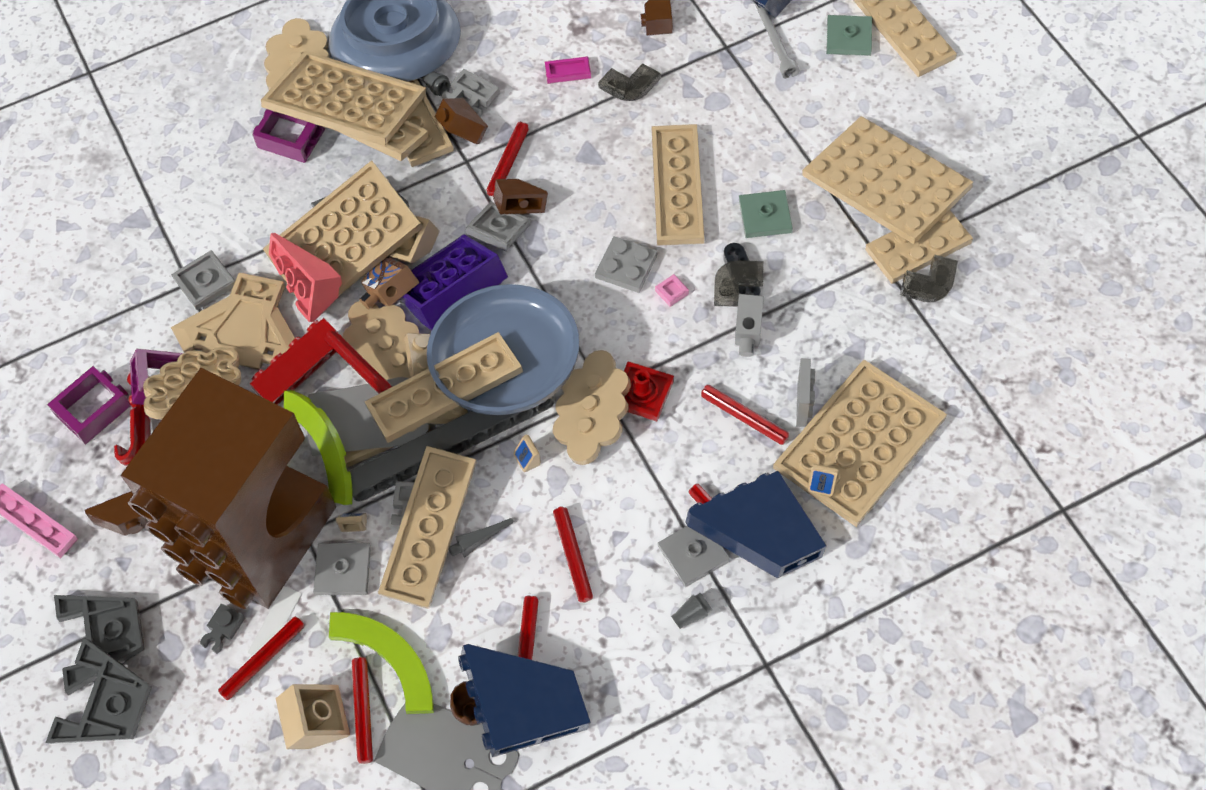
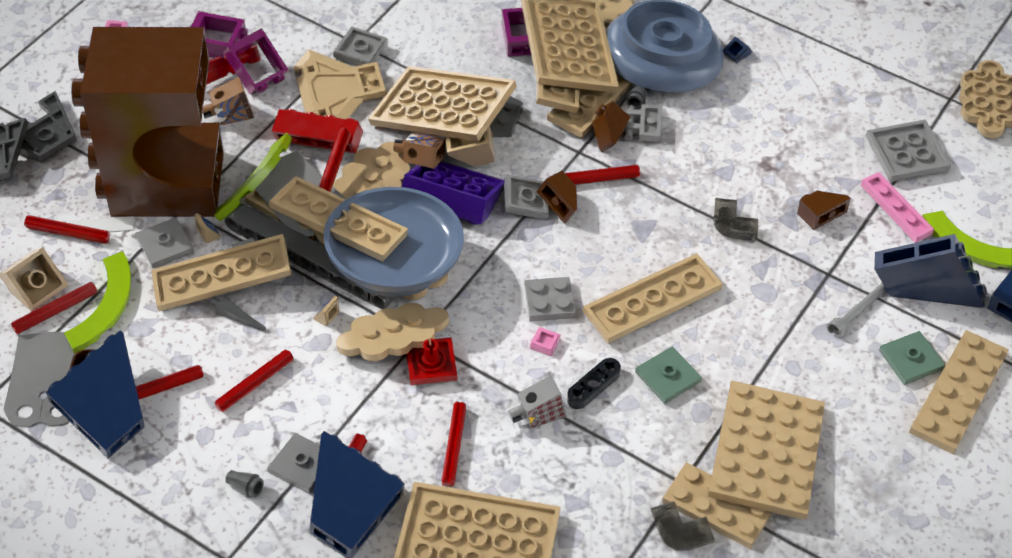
camera: 55 degrees right, 10 degrees down
(167, 386) = (255, 74): tan plate -> none
(223, 624) = (81, 197): dark grey plate -> none
(307, 276) = (392, 99): coral wedge -> none
(567, 69) = (717, 175): dark pink tile -> none
(732, 276) = (580, 373): clear smoke plate -> none
(805, 392) = (493, 470): light grey plate -> none
(822, 480) = (413, 520): slope -> none

